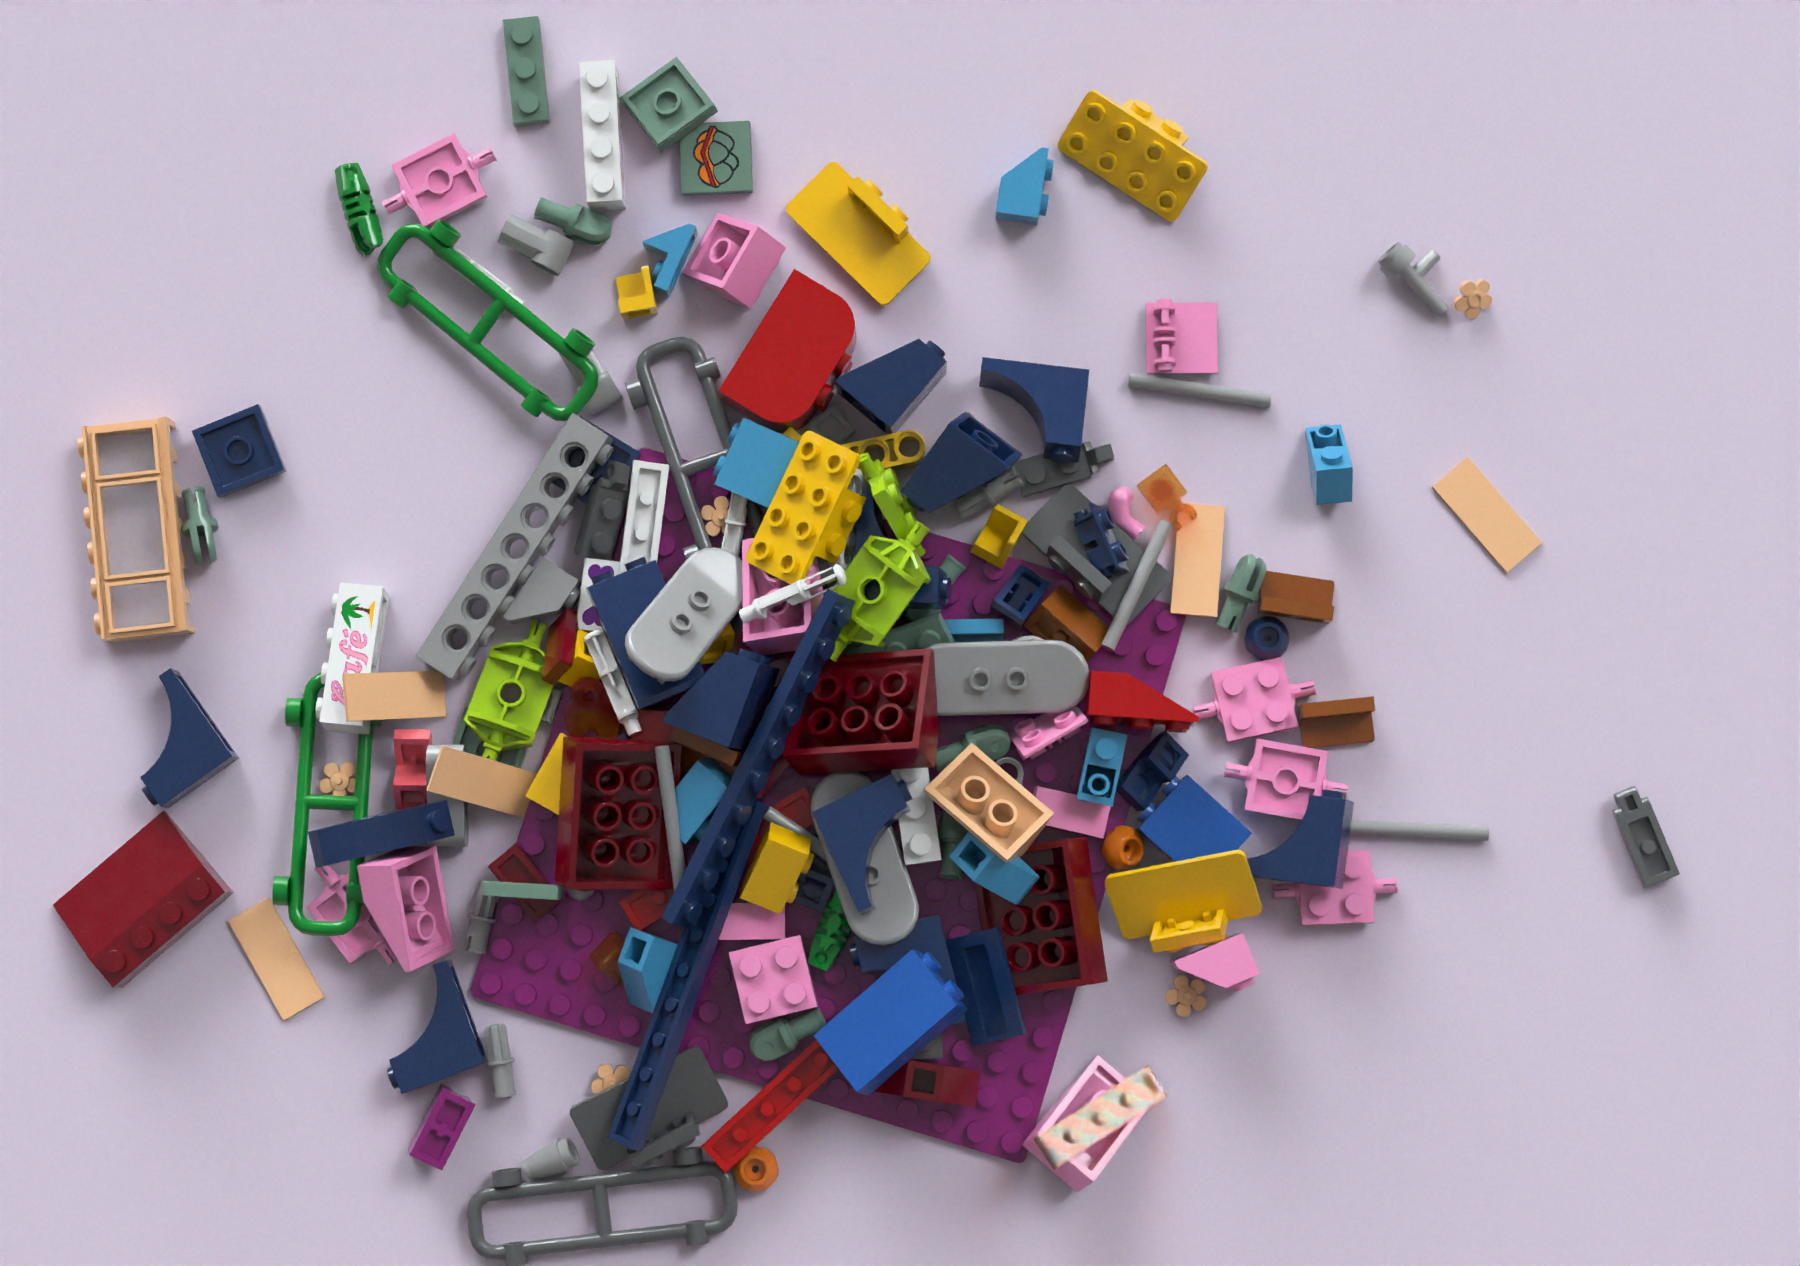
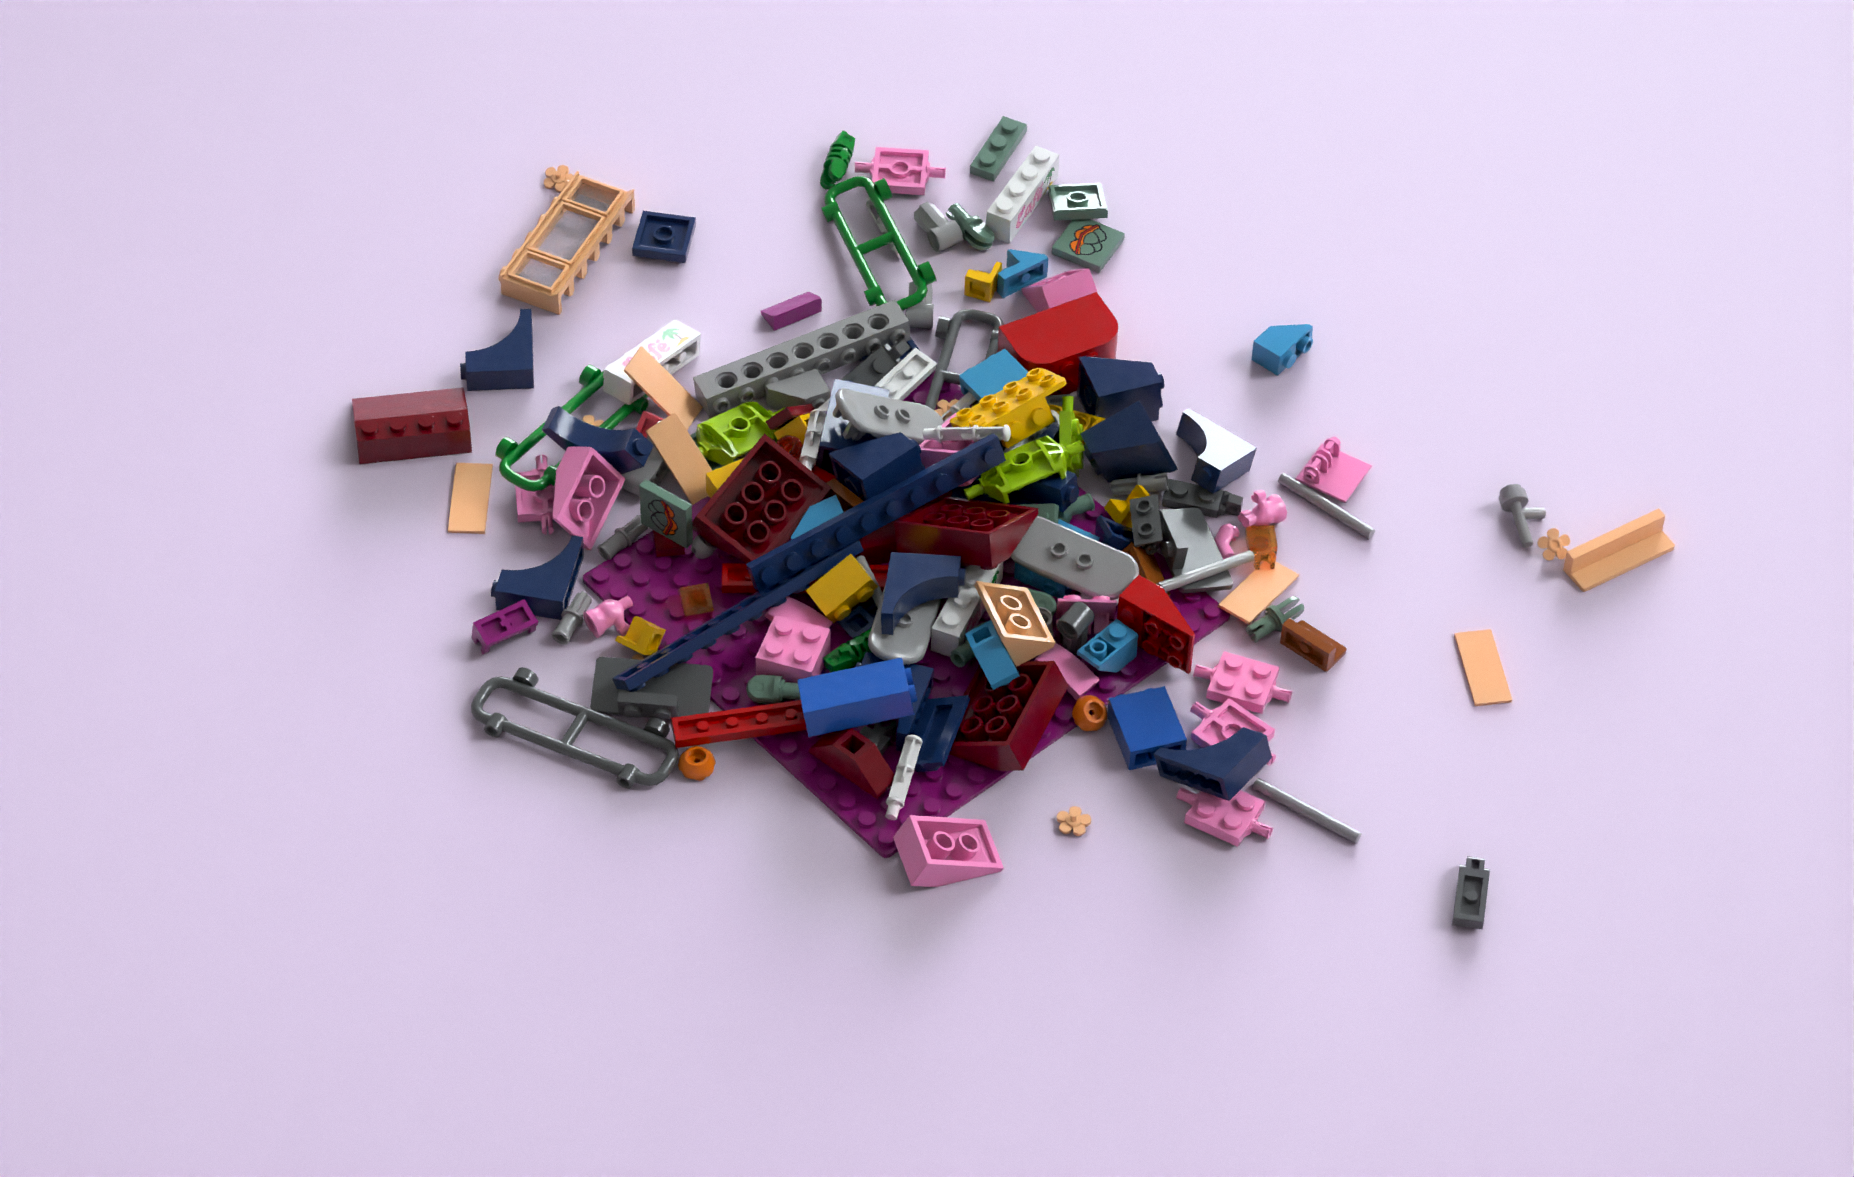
camera: 25 degrees right, 35 degrees down
(58, 431) = (557, 178): none -> light nougat plant
(199, 523) = (608, 259): sand green arm -> none
(449, 467) = (792, 310): none -> magenta slope
(537, 1037) = (607, 614): none -> bright pink piece
(551, 1160) = (564, 685): light grey cone -> none
(592, 1048) = (642, 636): none -> yellow panel
(644, 967) = (712, 599): dark azure slope -> none
(670, 812) = (800, 508): light grey bar -> none
(859, 231) = (1156, 318): yellow bracket -> none
(988, 1066) = (903, 776): none -> white piece
(1041, 567) = (1146, 523): none -> dark grey hinge
(1055, 766) = (1074, 626): none -> dark grey piece
(1097, 527) = (1198, 536): dark blue hinge -> none
(1100, 1117) = (960, 840): clear orange tile -> none
(1134, 152) = (1369, 361): yellow bracket -> none
(1144, 454) = (1266, 512): none -> bright pink piece
(1151, 769) = (1137, 680): dark blue slope -> none
(1184, 900) = (1112, 747): yellow bracket -> none
(1221, 964) = (1107, 796): bright pink slope -> none
(1255, 641) = (1277, 653): dark blue plate -> none
(1329, 464) = (1387, 579): dark azure slope -> none
(1336, 722) = (1296, 719): dark orange panel -> none
(1547, 266) = (1618, 551): none -> light nougat panel

